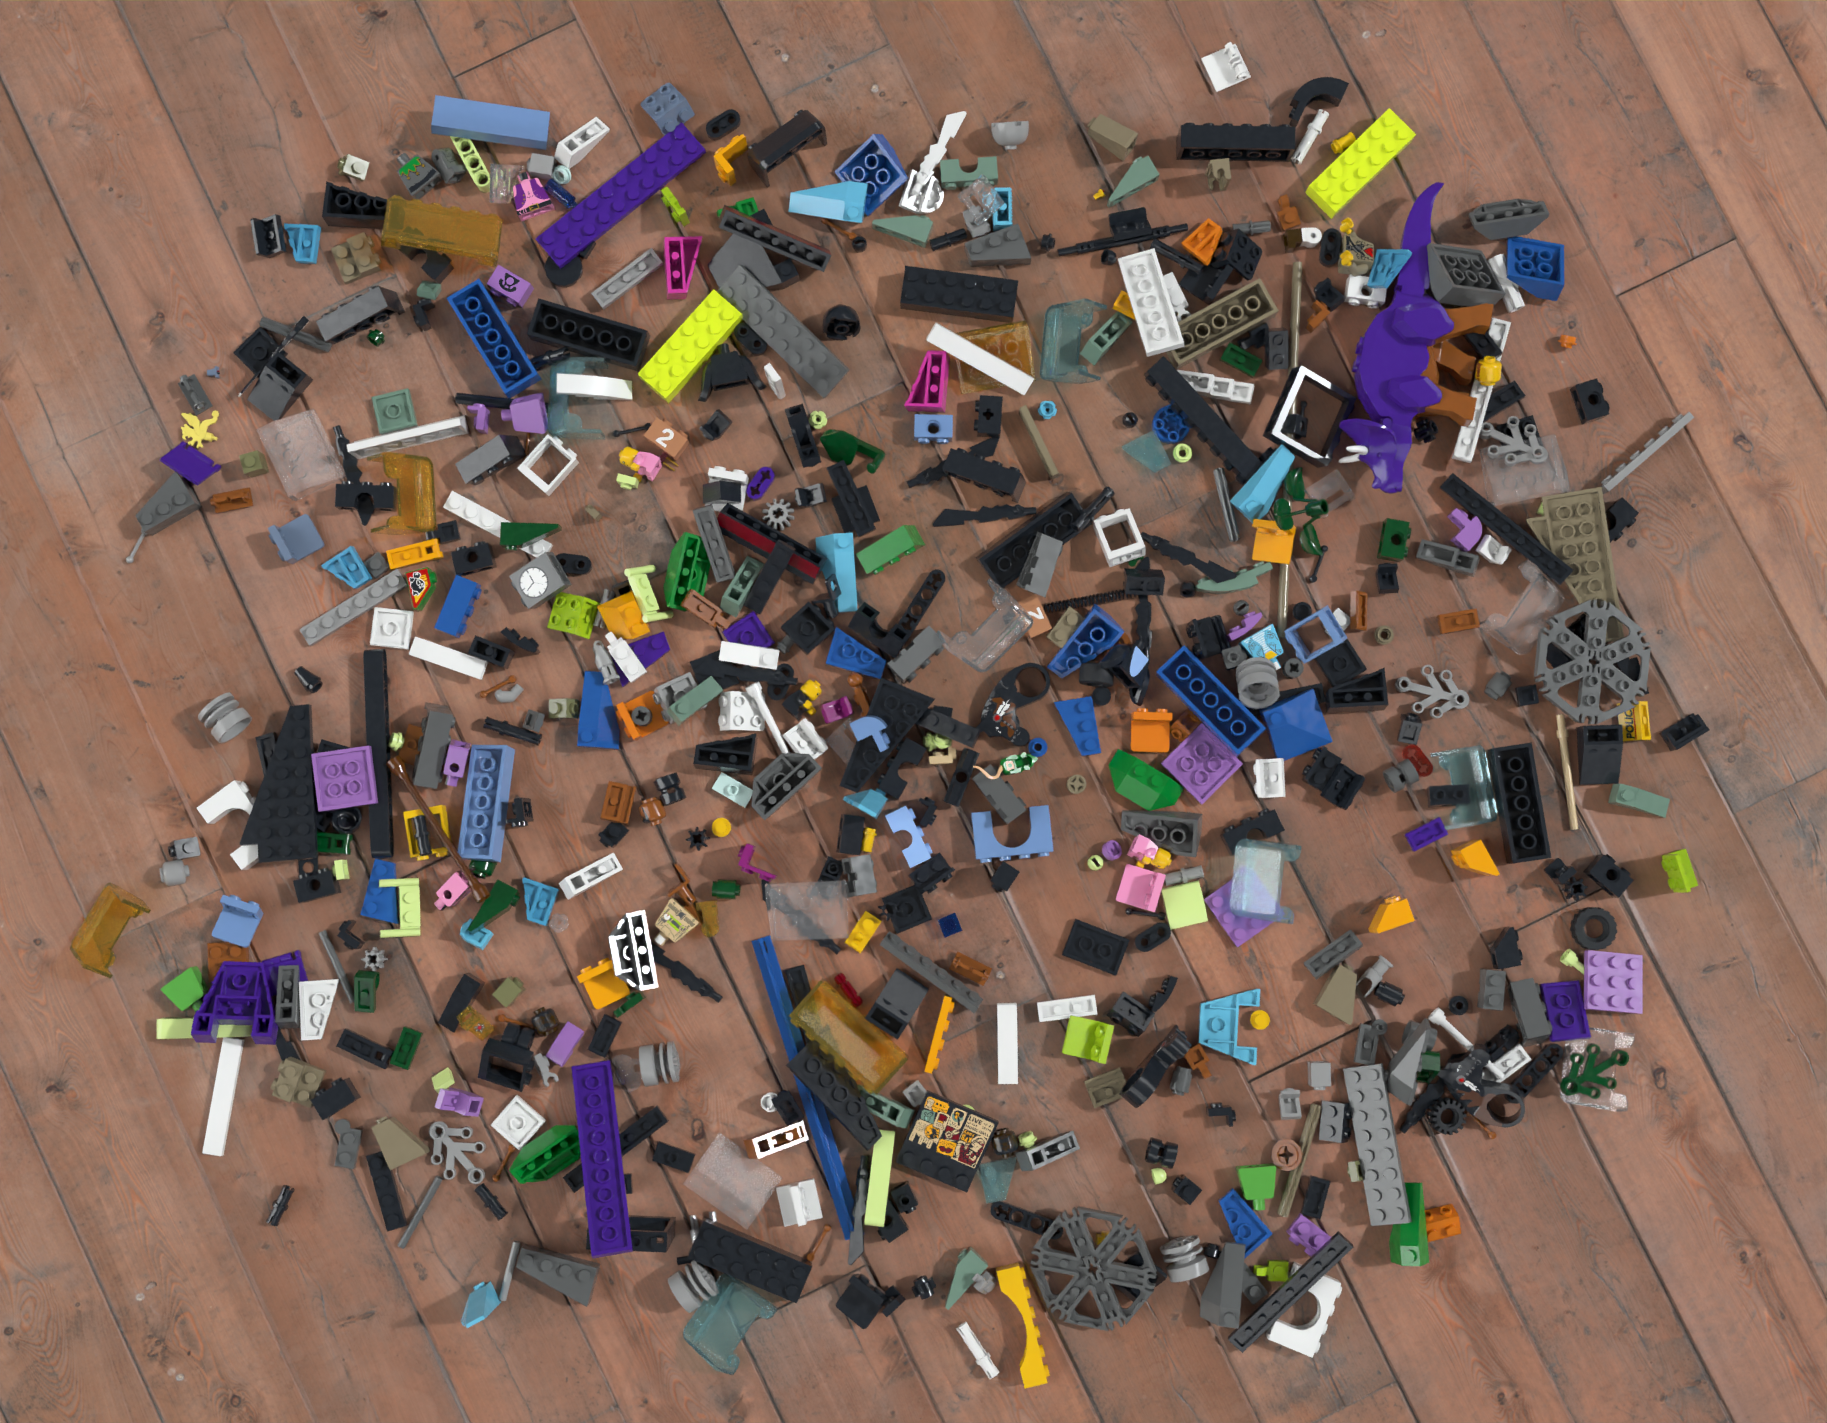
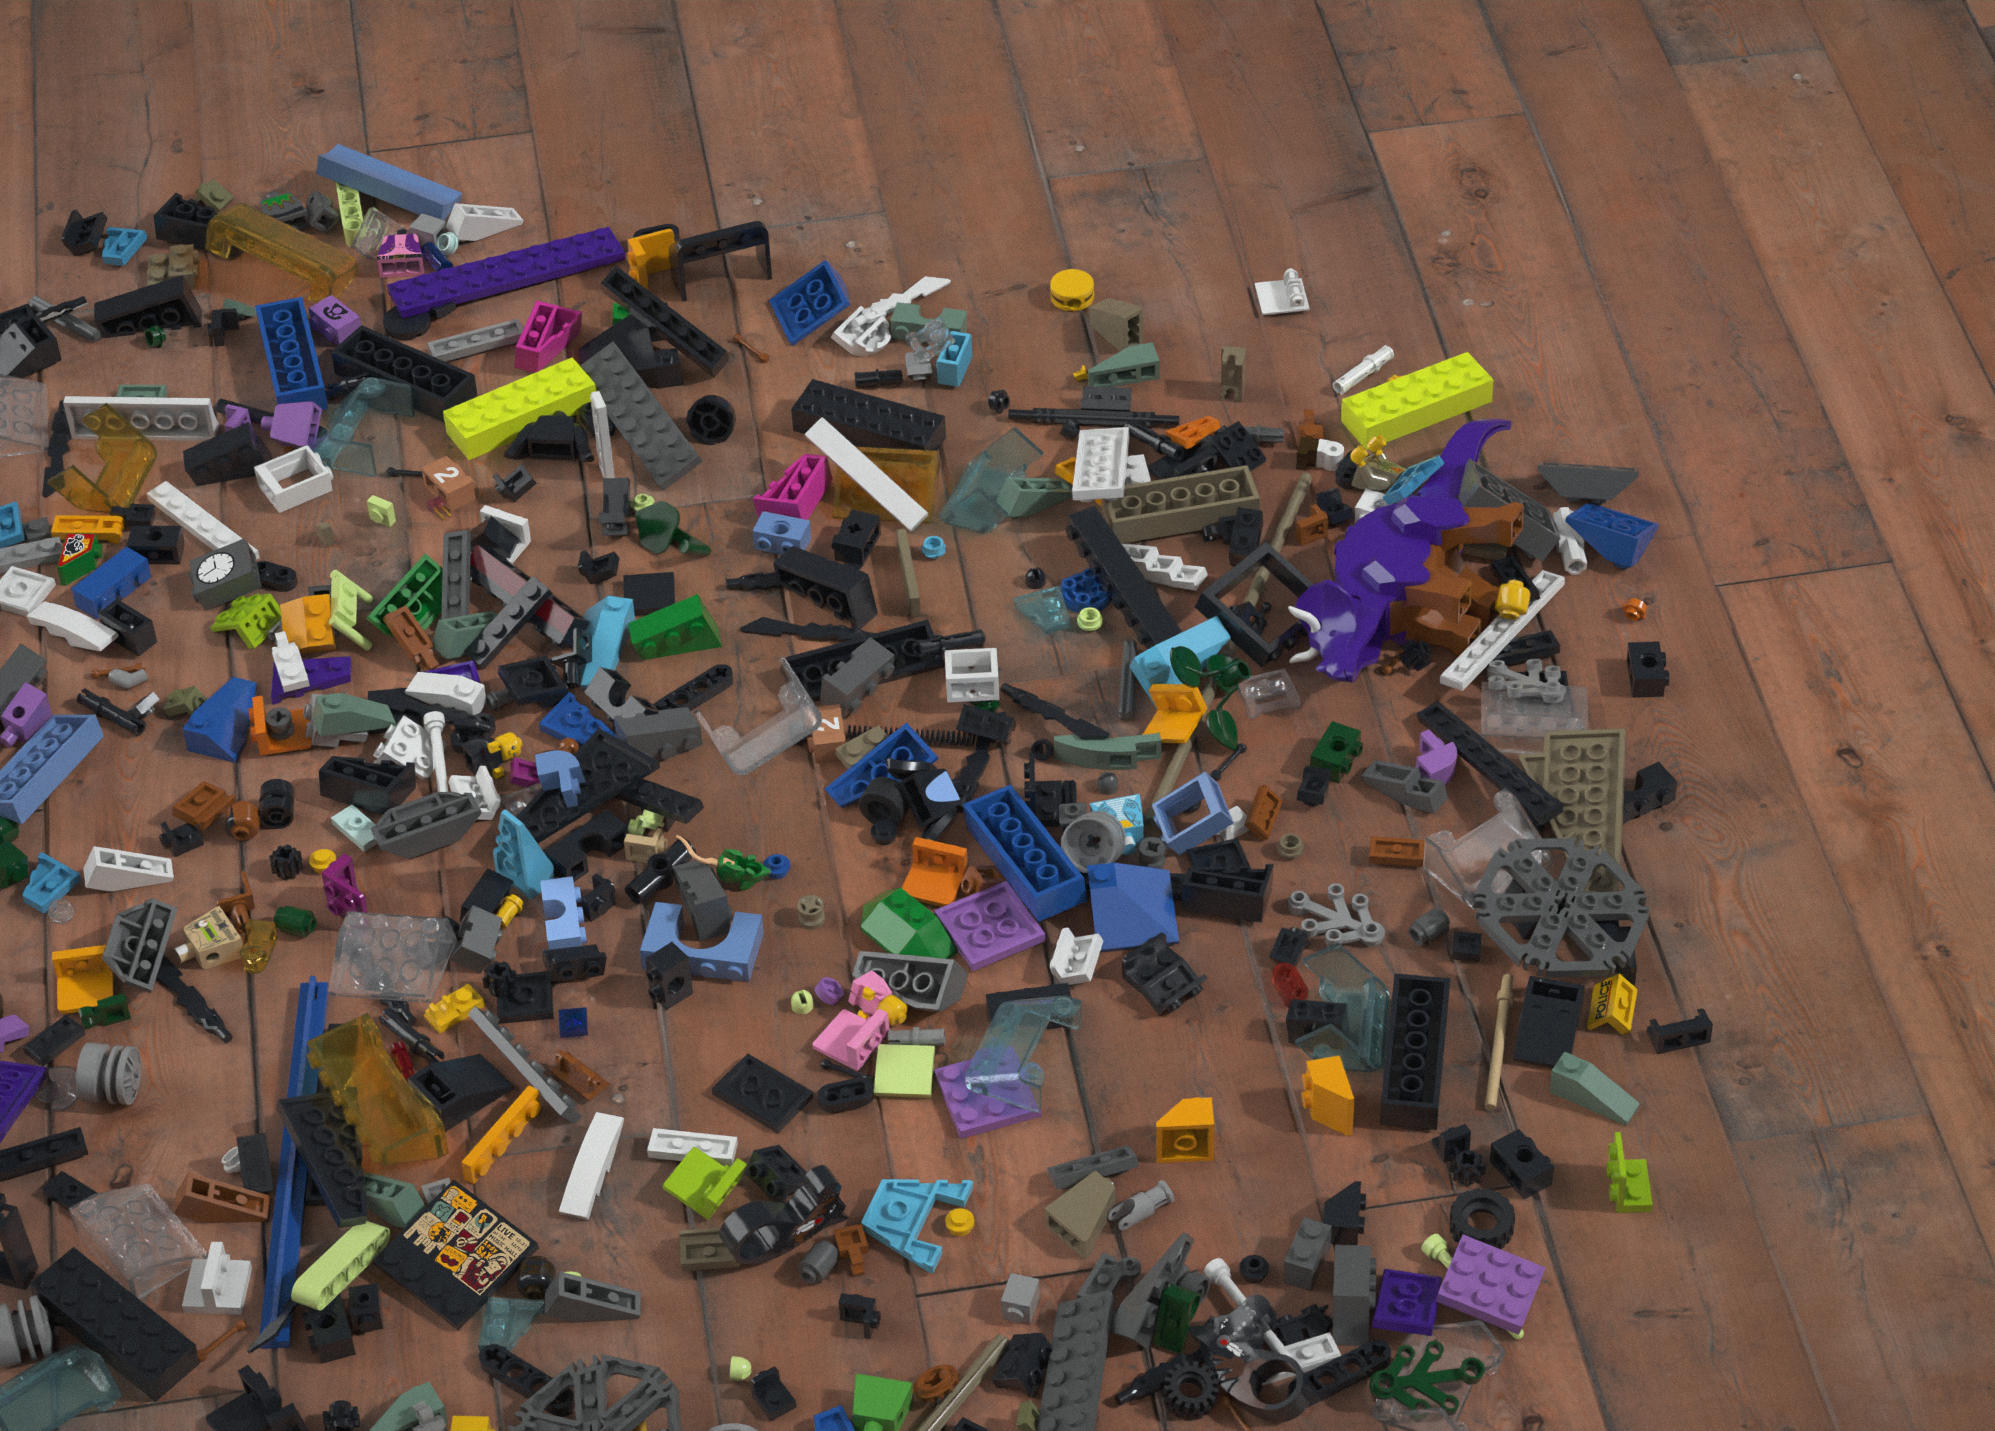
camera: 15 degrees right, 40 degrees down
(349, 494) = (44, 457): black arch -> none
(436, 265) = (255, 279): black arch -> none
(520, 535) = (229, 524): dark green slope -> none
(523, 810) = (75, 783): black bracket -> none
(525, 643) = (170, 629): black slope -> none
(594, 387) = (391, 417): white slope -> none
(605, 663) = (261, 670): light grey piece -> none
(643, 462) = (409, 498): piece -> none
(667, 108) = (600, 213): sand blue bracket -> none
(679, 213) = (563, 285): lime wing -> none
(757, 481) = (543, 547): dark purple beam -> none
(771, 518) = (552, 573): light grey gear -> none
(835, 201) = (756, 321): medium azure wedge -> none
(849, 969) = (419, 1043): none -> black pin
(851, 498) = (647, 574): black plate -> none
(860, 247) = (769, 364): black hinge -> none
(907, 228) = (829, 357): sand green slope -> none
(998, 248) = (935, 391): dark grey wedge -> none
(1000, 710) = (758, 807): black animal -> none
(1010, 133) = (992, 296): light grey cylinder -> none
(1065, 104) = (1072, 290): none -> yellow head
(1081, 723) = (845, 855): blue wing -> none
(1158, 999) = (842, 1156): black slope -> none
(1168, 1153) = (753, 1337): black wheel -> none
(1235, 142) = (1271, 350): black brick -> none
(1241, 360) = (1199, 548): dark green plate -> none
(1249, 622) = (1109, 790): medium lavender slope -> none
(1289, 1104) = (964, 1323): light grey bracket -> none
(1318, 89) = (1382, 330): black arch -> none
(1389, 993) = (1156, 1229): black brick -> none
(1407, 774) = (1258, 990): dark grey wheel -> none
(1426, 834) = (1274, 1065): dark purple plate -> none
(1493, 550) = (1466, 788): white bracket -> none
(1650, 447) = (1708, 733): light grey plate -> none

